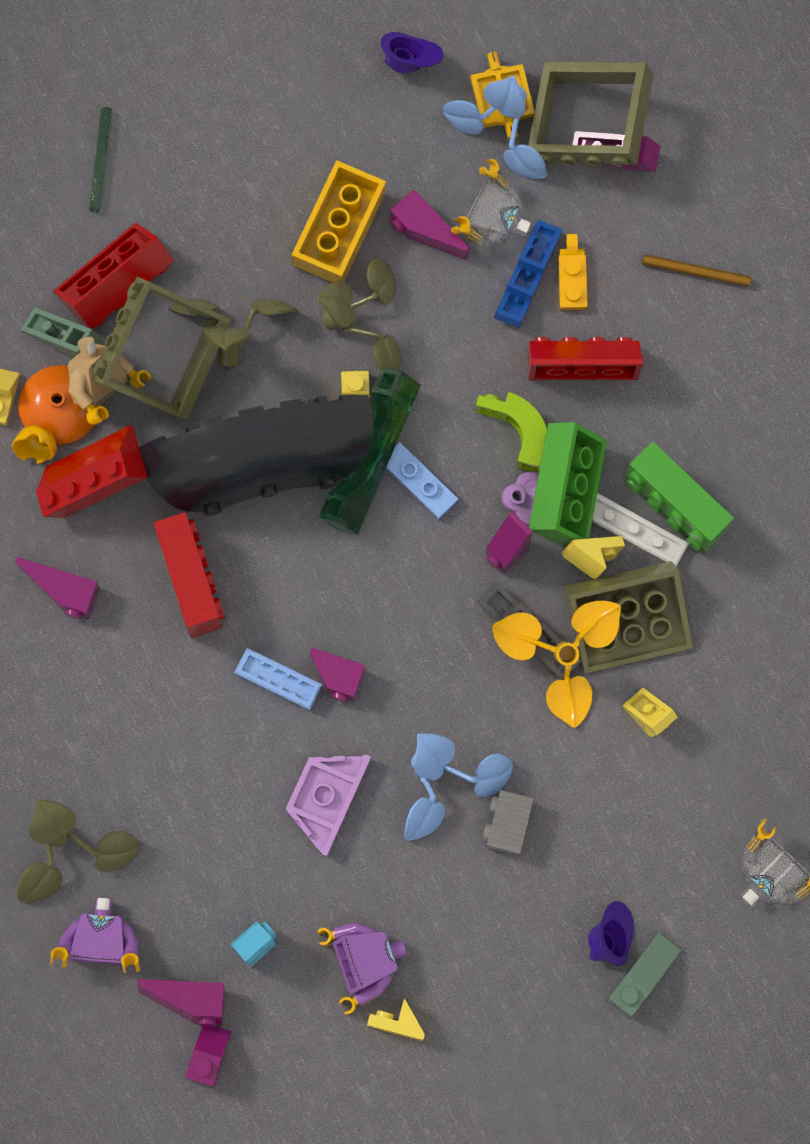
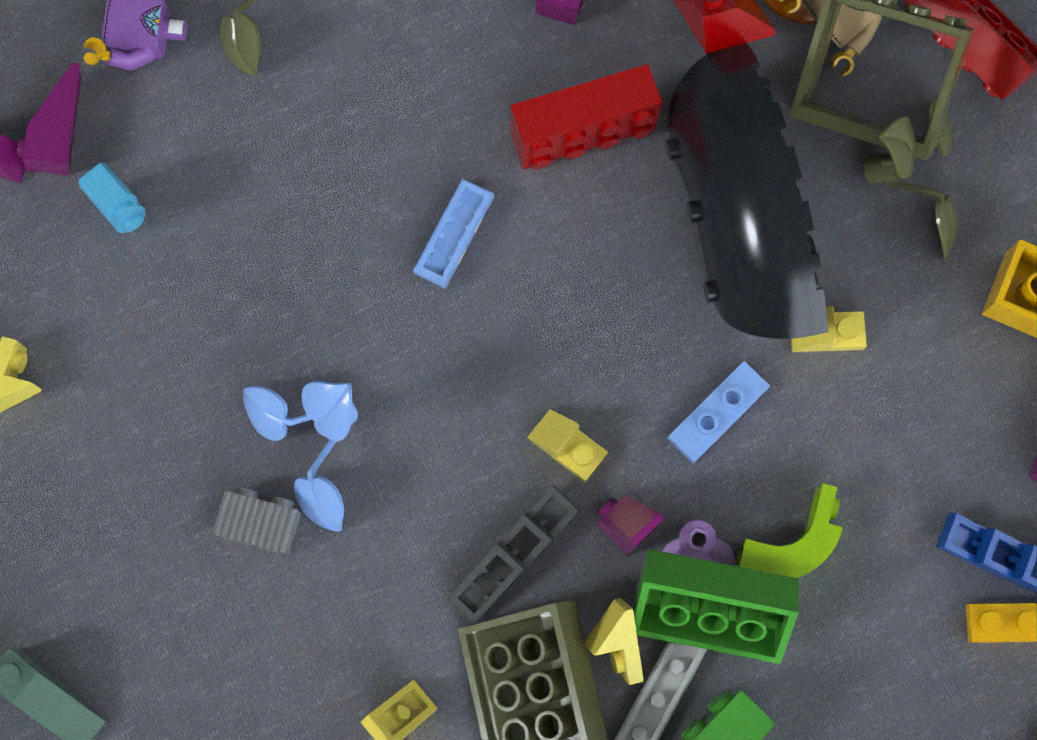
camera: 90 degrees right, 0 degrees up
(325, 796) = (302, 291): lavender wing -> none
(338, 674) = (457, 305): magenta slope -> none
(341, 314) = (952, 289): olive plant -> none
(364, 959) = (87, 335): medium lavender torso -> none
(391, 404) = (820, 372): clear green arch -> none
(444, 593) = (567, 444): none -> light yellow slope
(584, 359) = (895, 634): red slope -> none
(595, 622) = (519, 639): yellow plant -> none
(613, 935) = (99, 658): dark purple piece -> none

